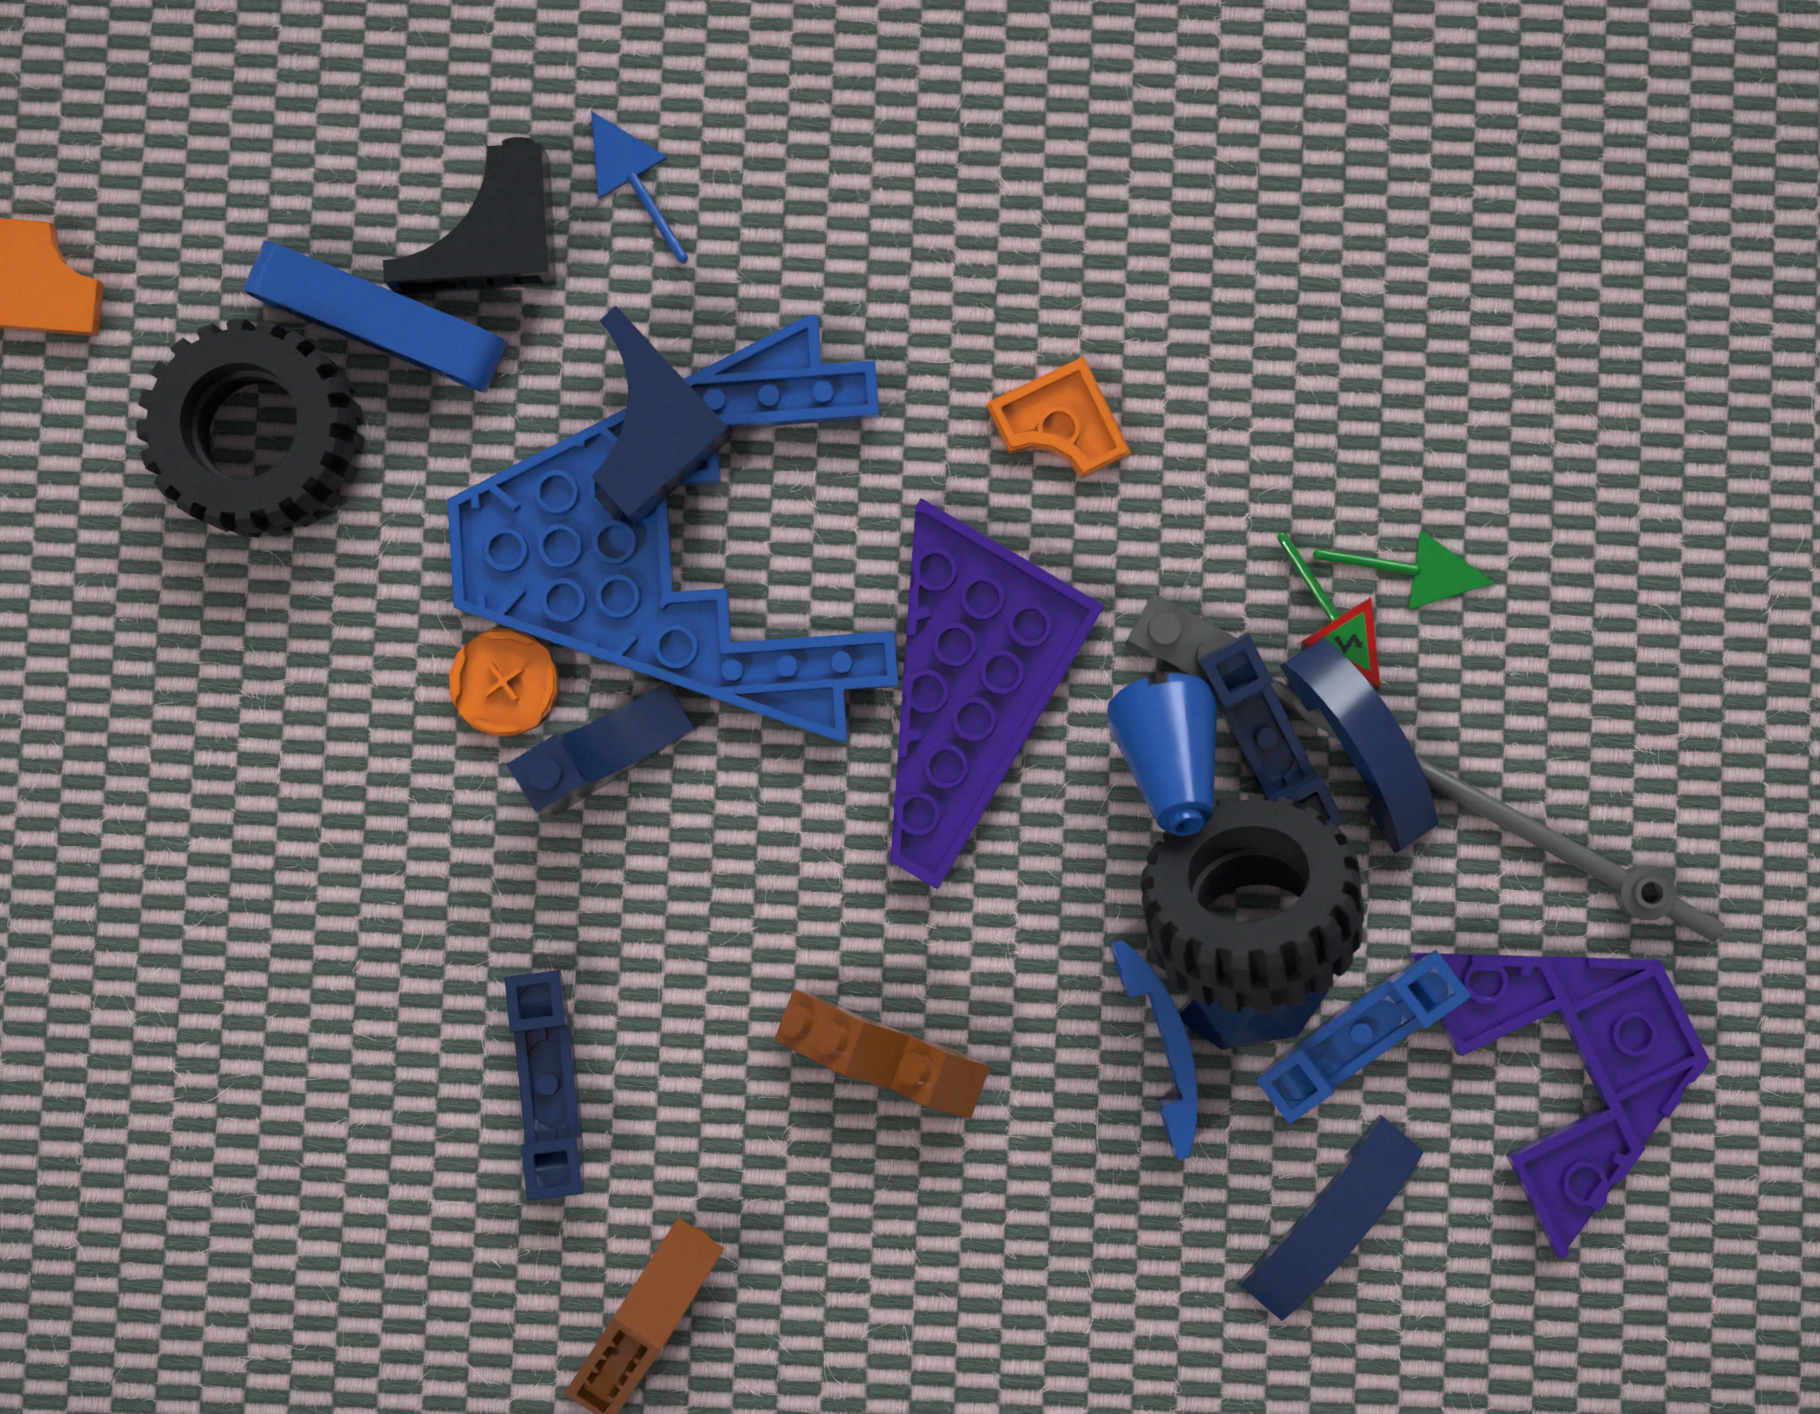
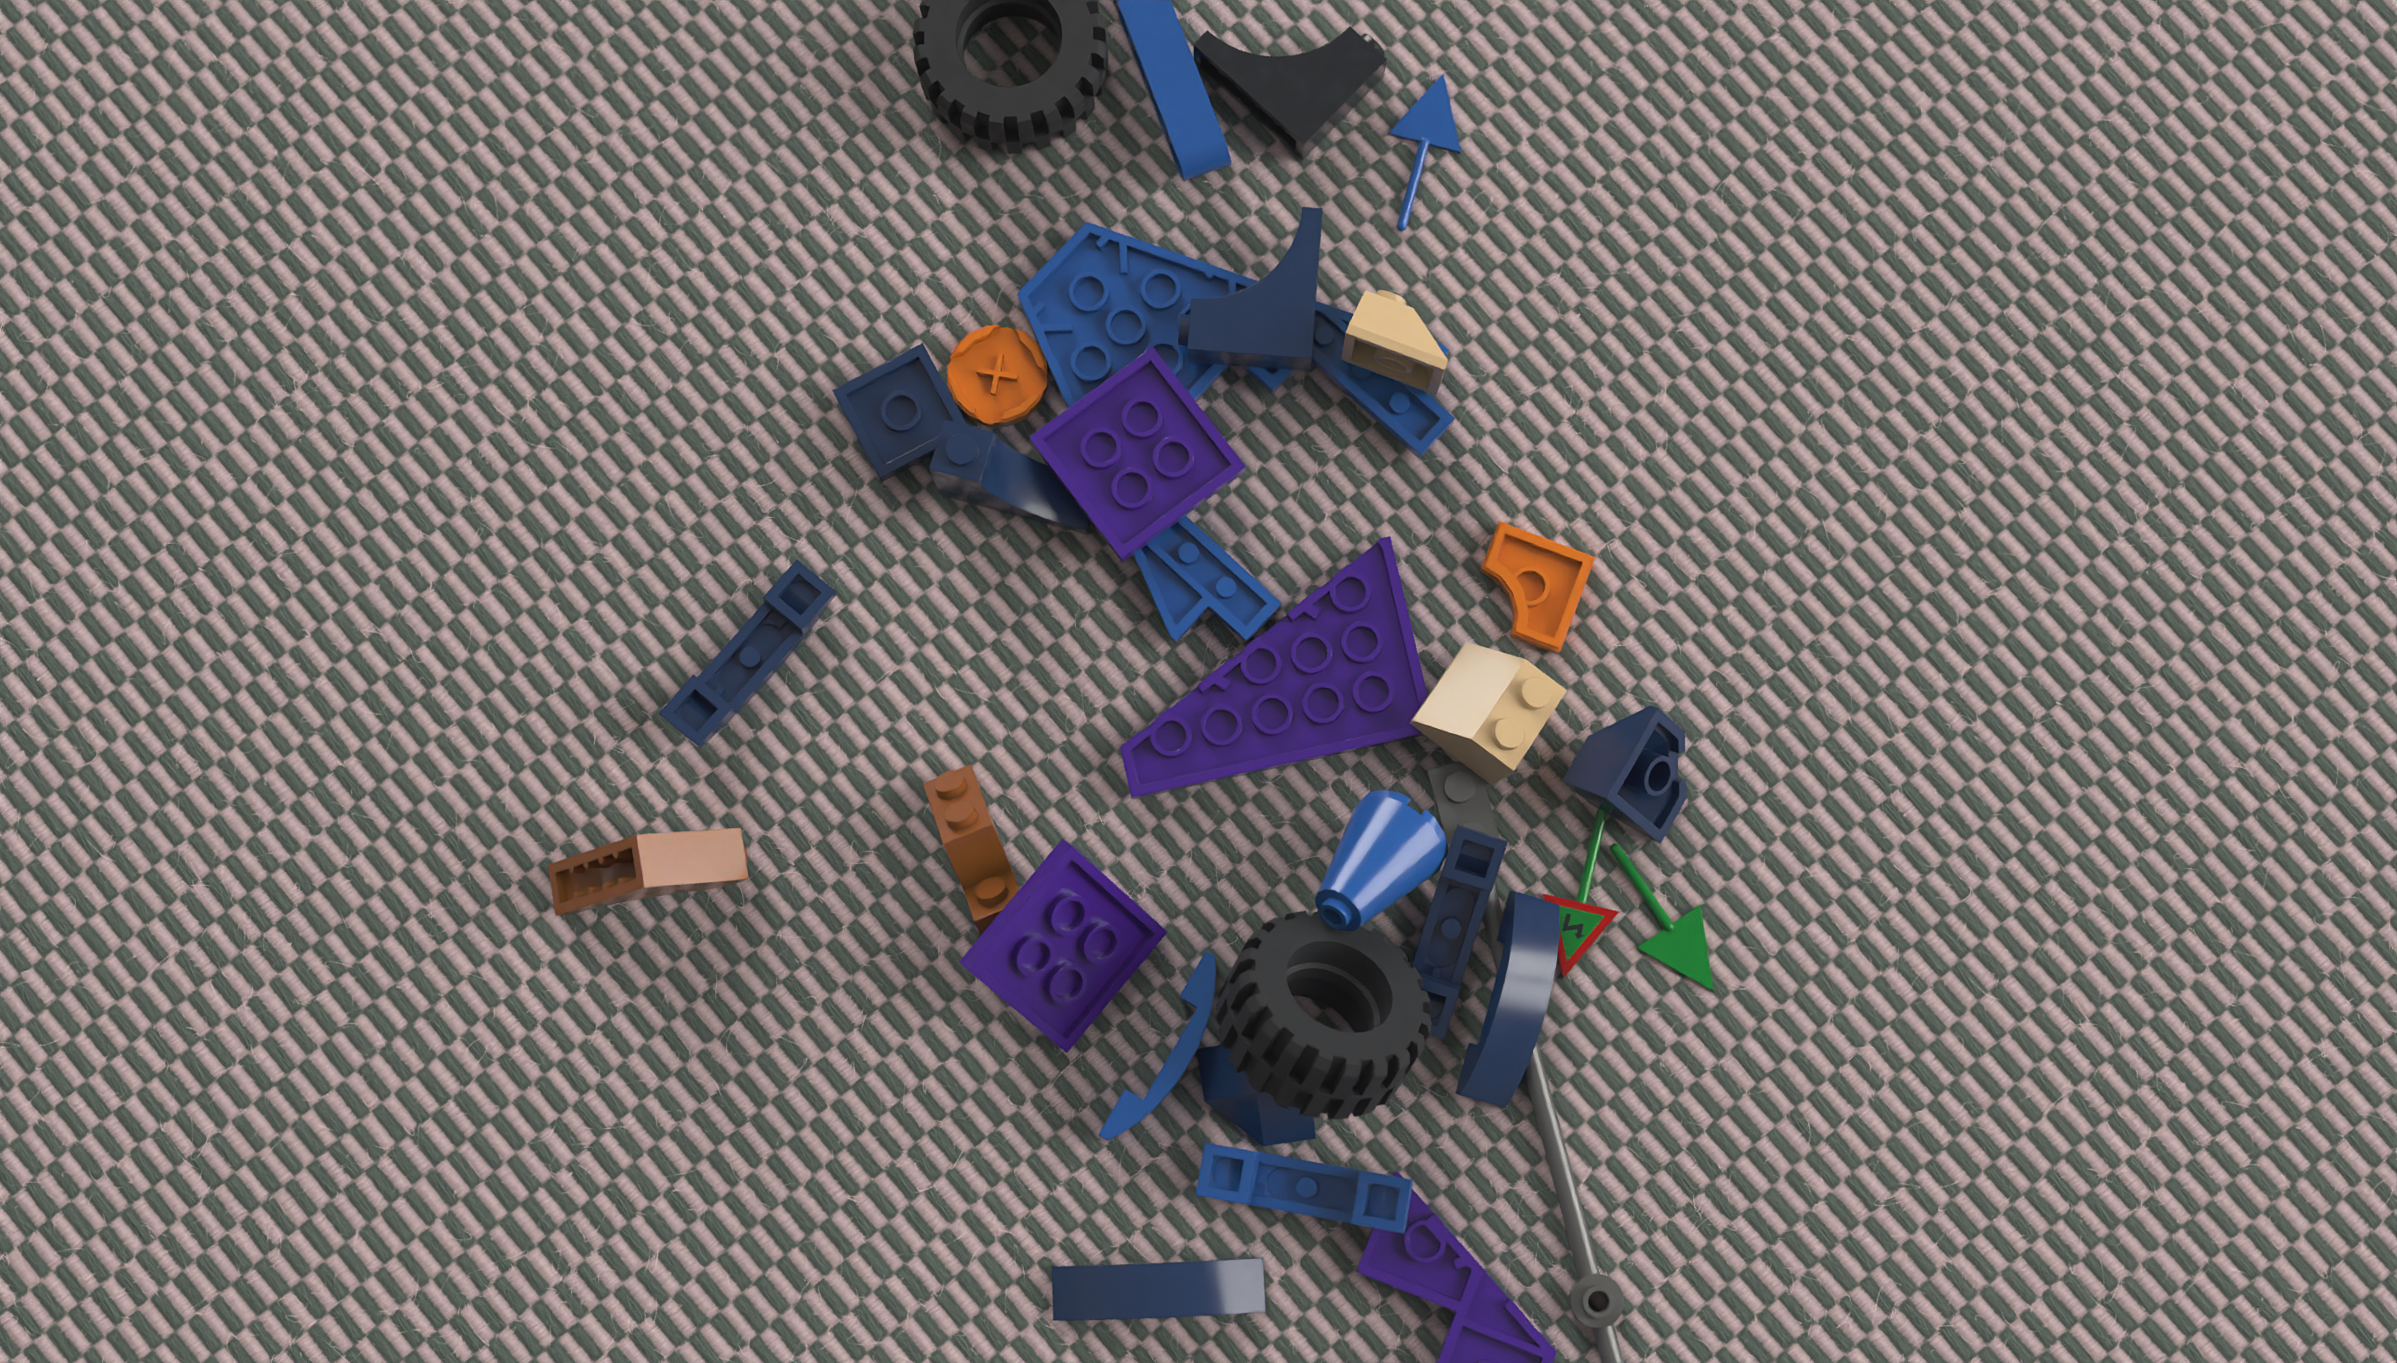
camera: 45 degrees right, 5 degrees down
(461, 786) = (898, 411): none -> dark blue plate
(673, 633) = (1137, 454): none -> dark purple plate
(775, 350) = (1393, 342): none -> tan slope
(1007, 1053) = (1063, 946): none -> dark purple plate
(1128, 550) = (1488, 709): none -> tan slope
(1276, 485) = (1633, 771): none -> dark blue slope

